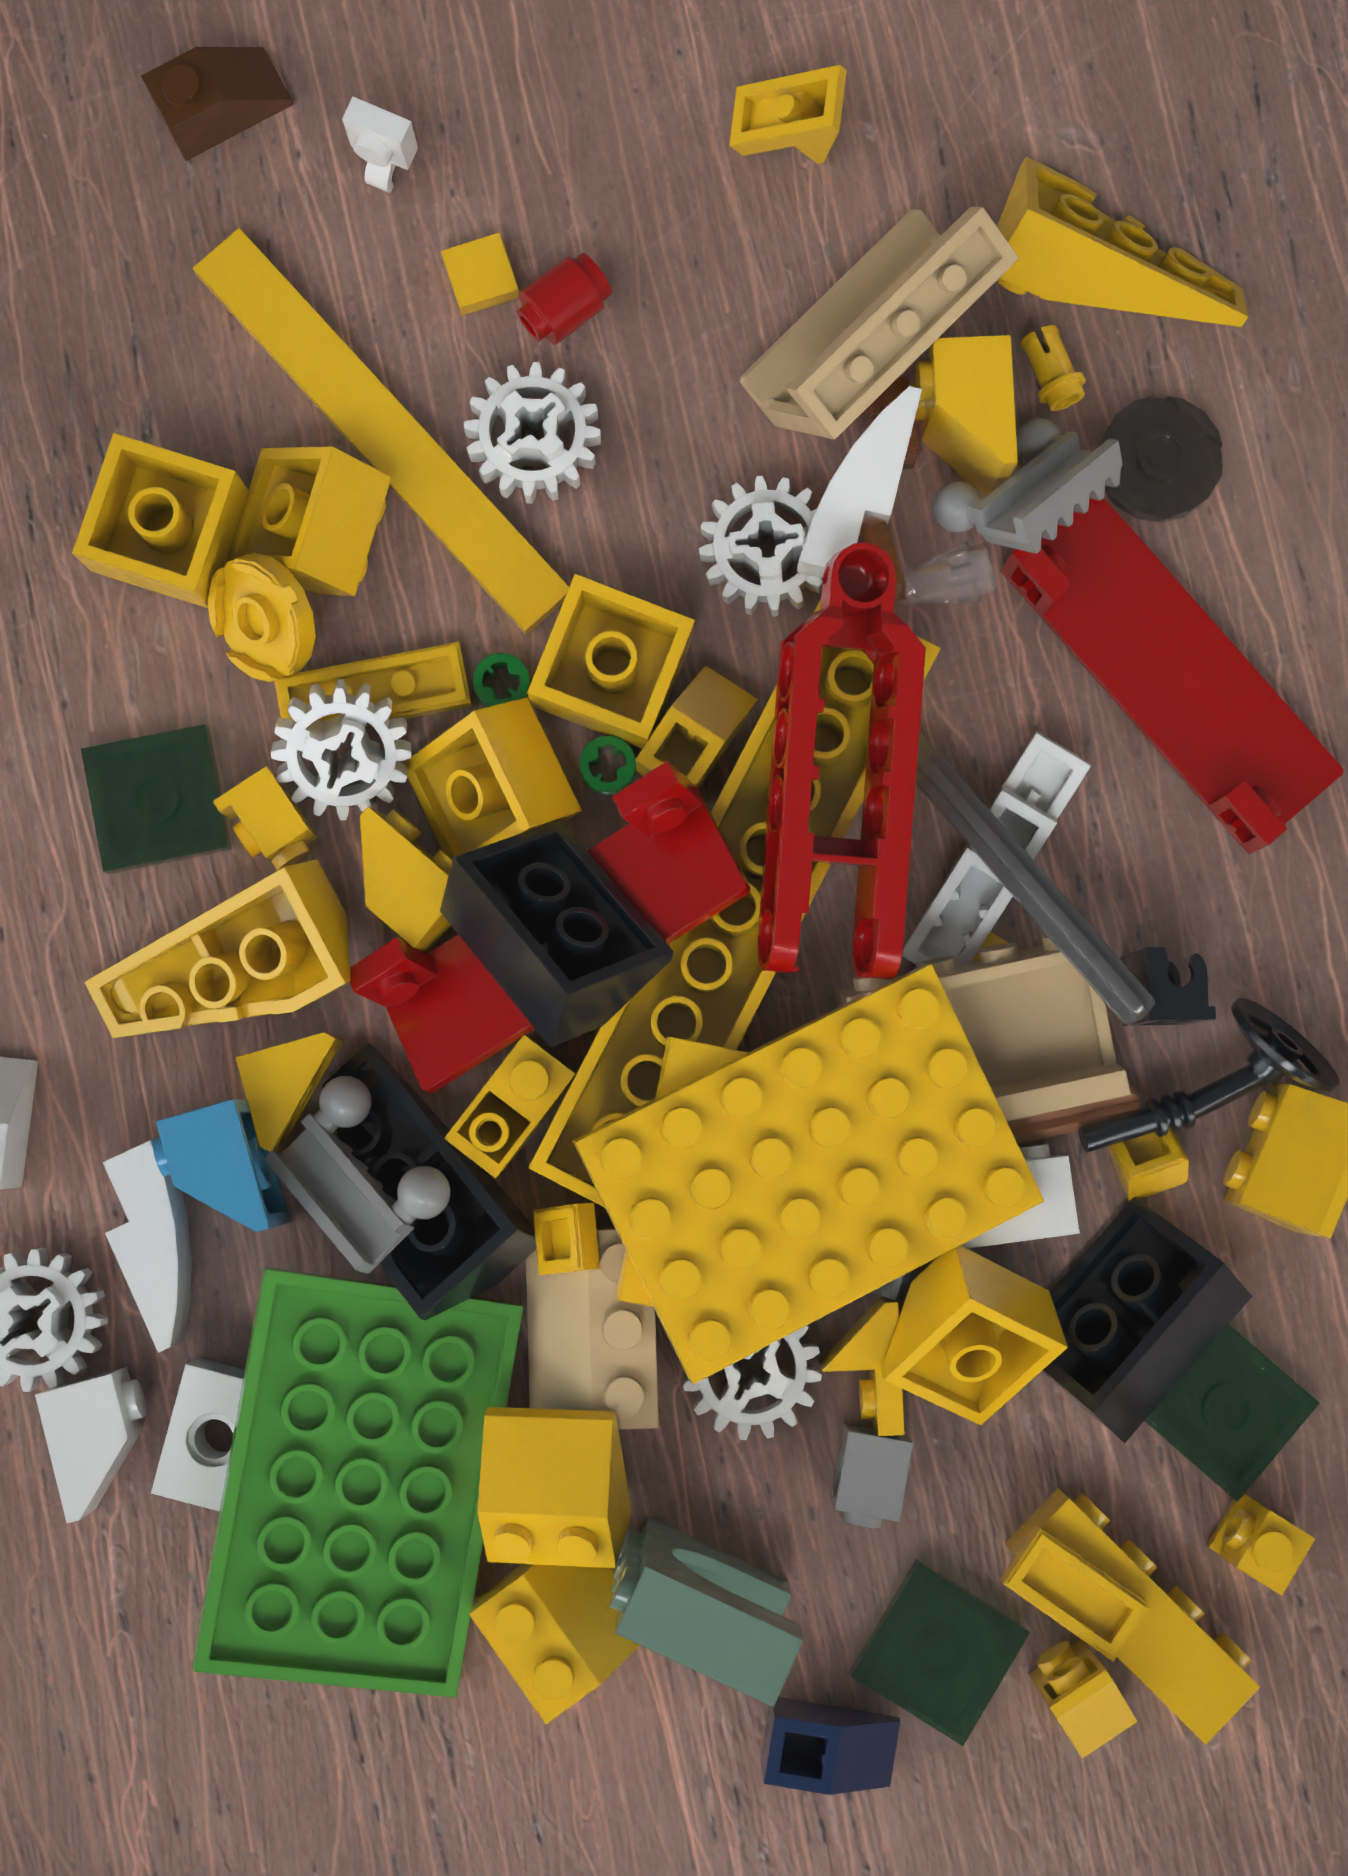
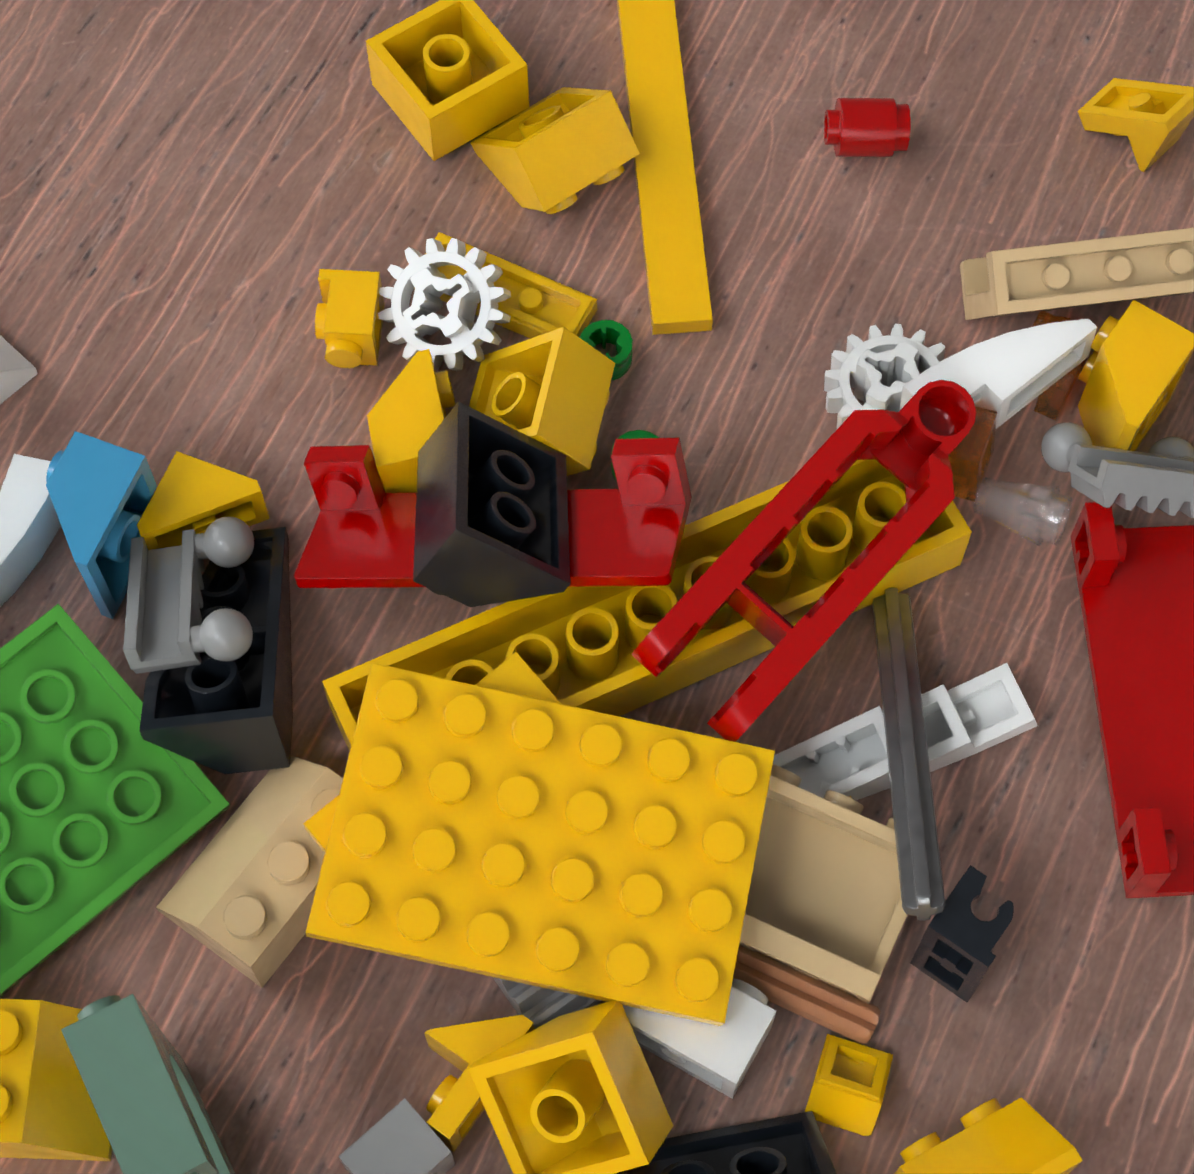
camera: 40 degrees right, 20 degrees down
(155, 799) = (276, 256): clear green tile -> none
(241, 959) = (241, 389): yellow wedge -> none
(262, 617) = (464, 178): yellow tile -> none
(480, 274) = (818, 77): yellow tile -> none
(511, 1106) = (346, 633): yellow slope -> none
(549, 413) = (771, 197): white gear -> none
(552, 1487) = (126, 936): yellow slope -> none
(566, 1239) = (305, 763): yellow tile -> none
(611, 662) = (701, 379): yellow brick -> none
(698, 727) = (728, 469): yellow slope -> none
(775, 1382) = (345, 1004): white gear -> none
(1274, 1055) = (1027, 1066): black dish -> none

